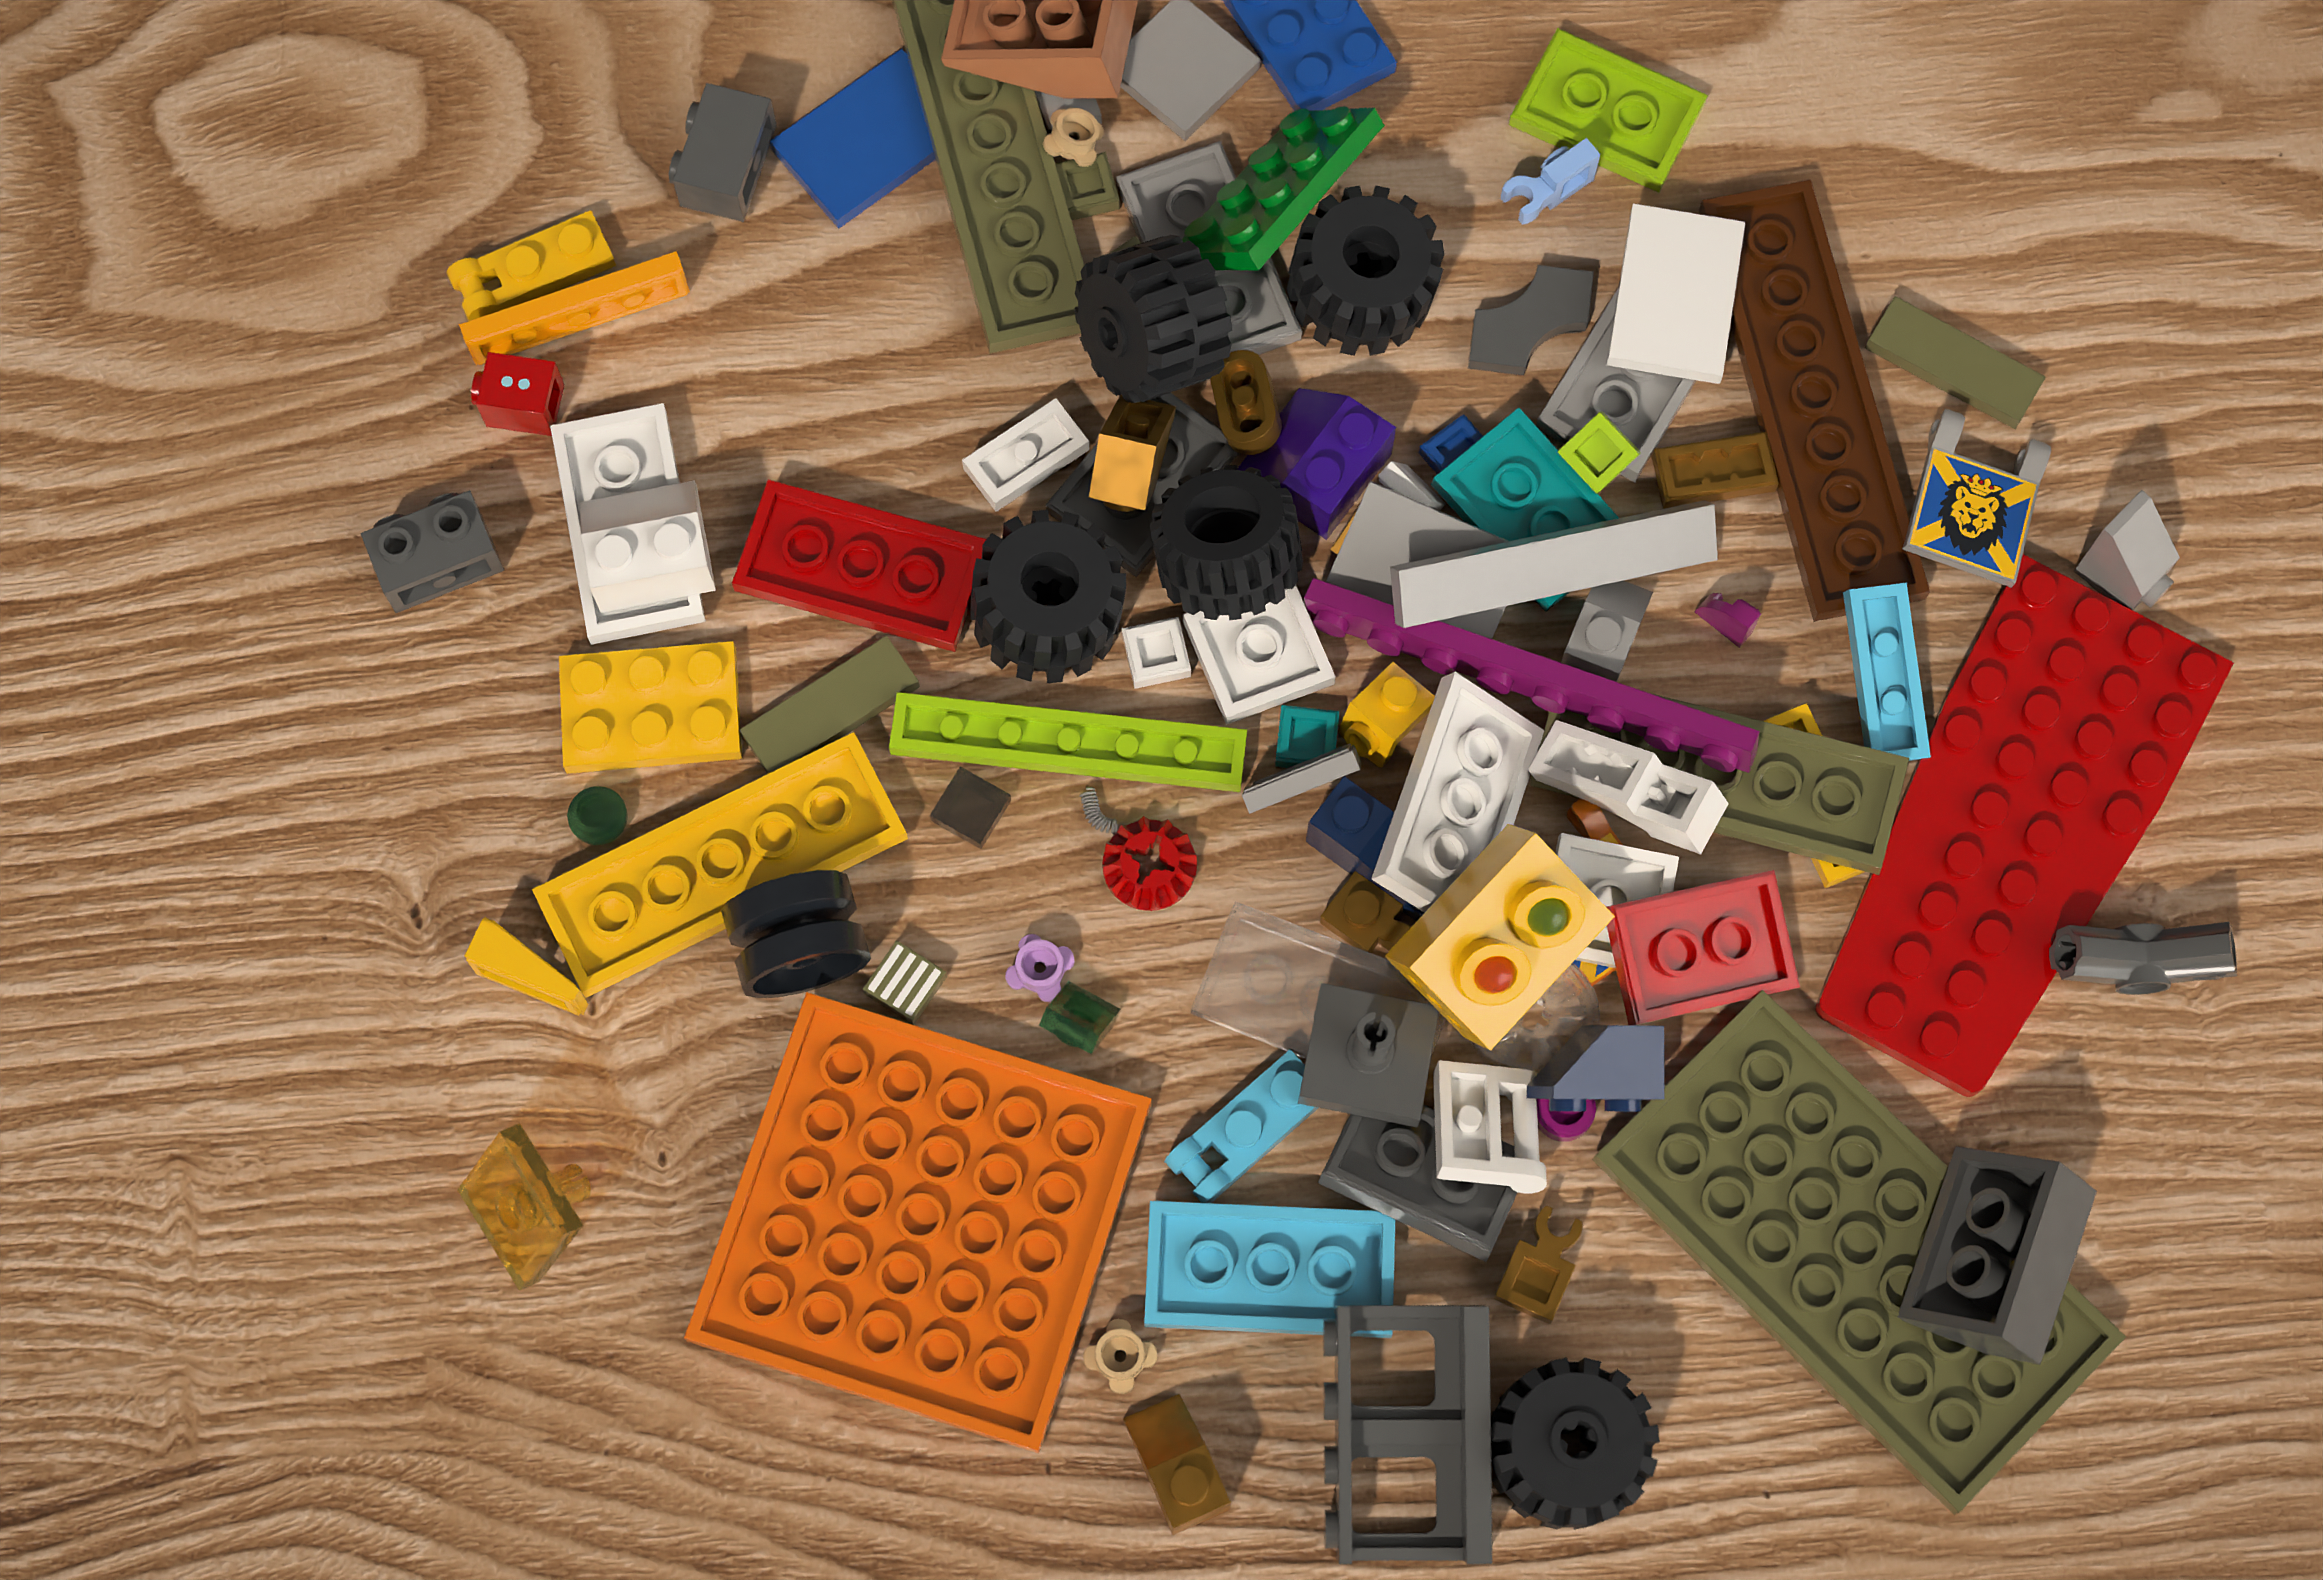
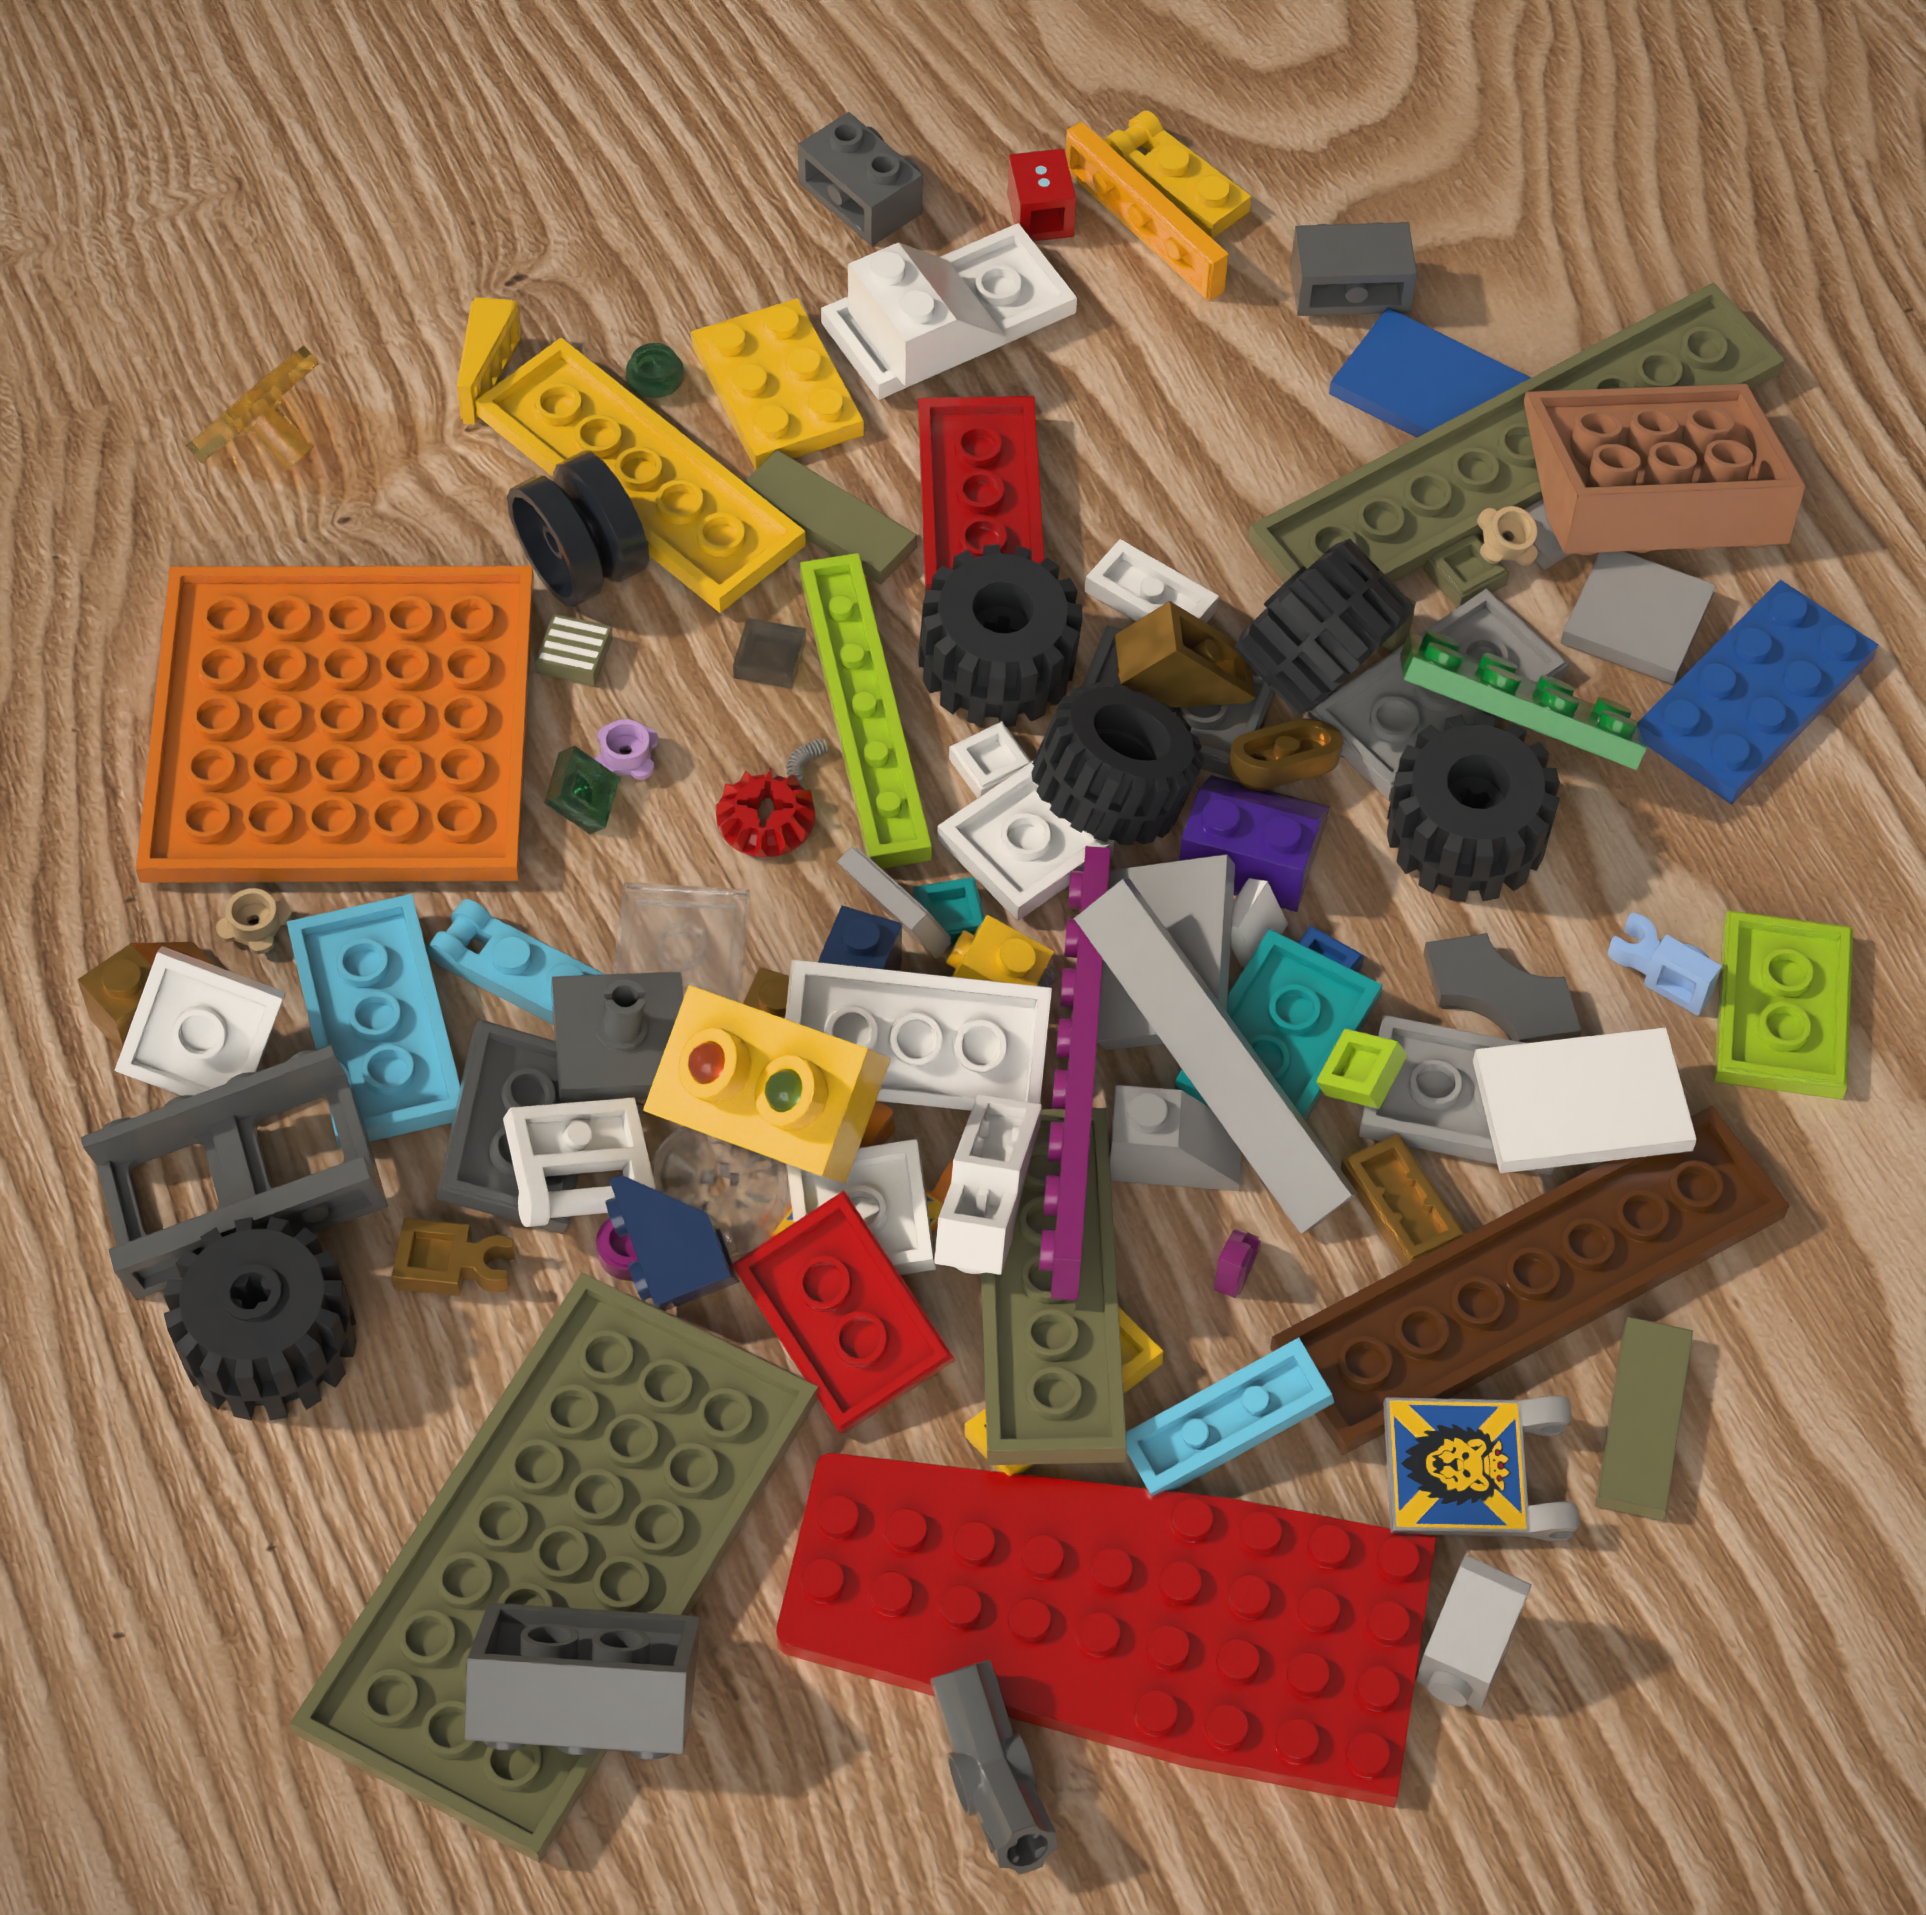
camera: 70 degrees right, 15 degrees down
(1259, 1427) = (197, 1025): none -> white tile

